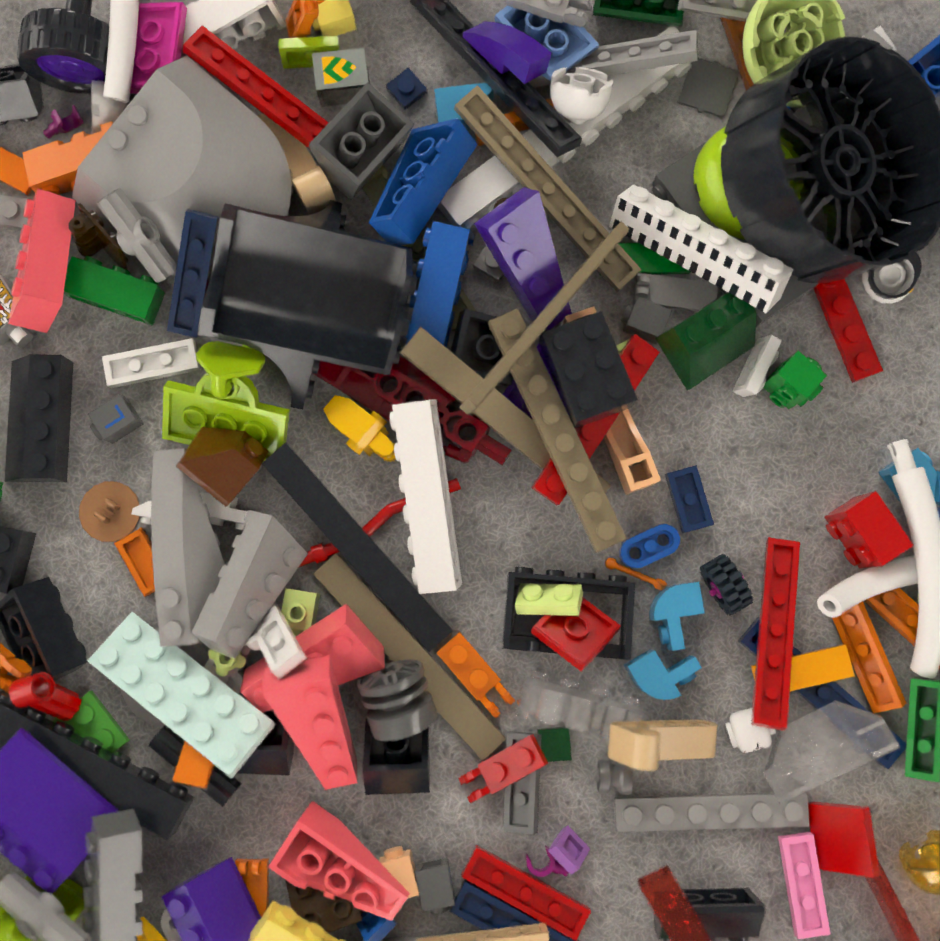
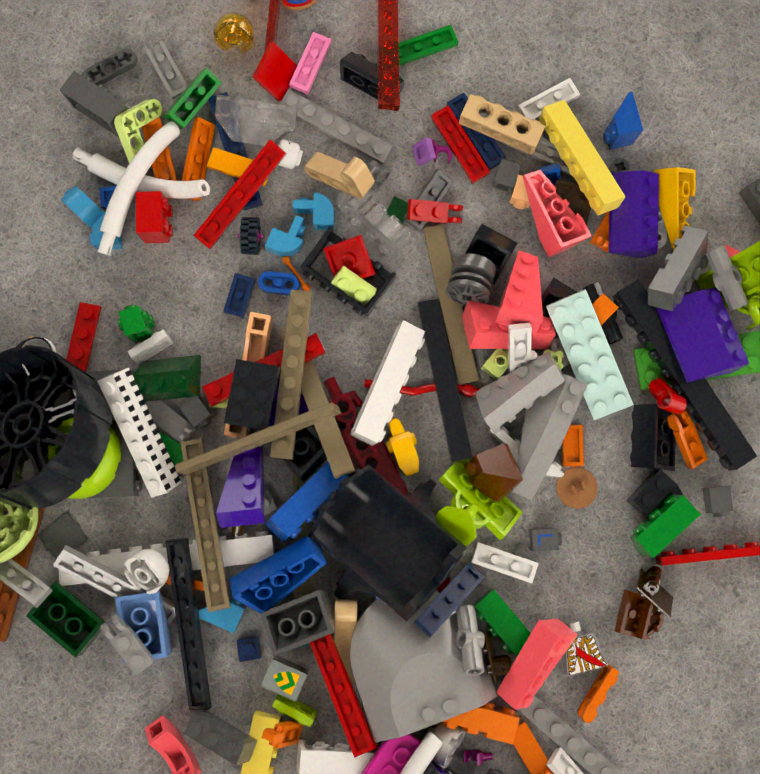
camera: 150 degrees left, 0 degrees up
(39, 419) = (591, 567): black slope -> none
(473, 672) = (419, 274): orange hinge -> none
(509, 50) = (173, 628): dark purple slope -> none

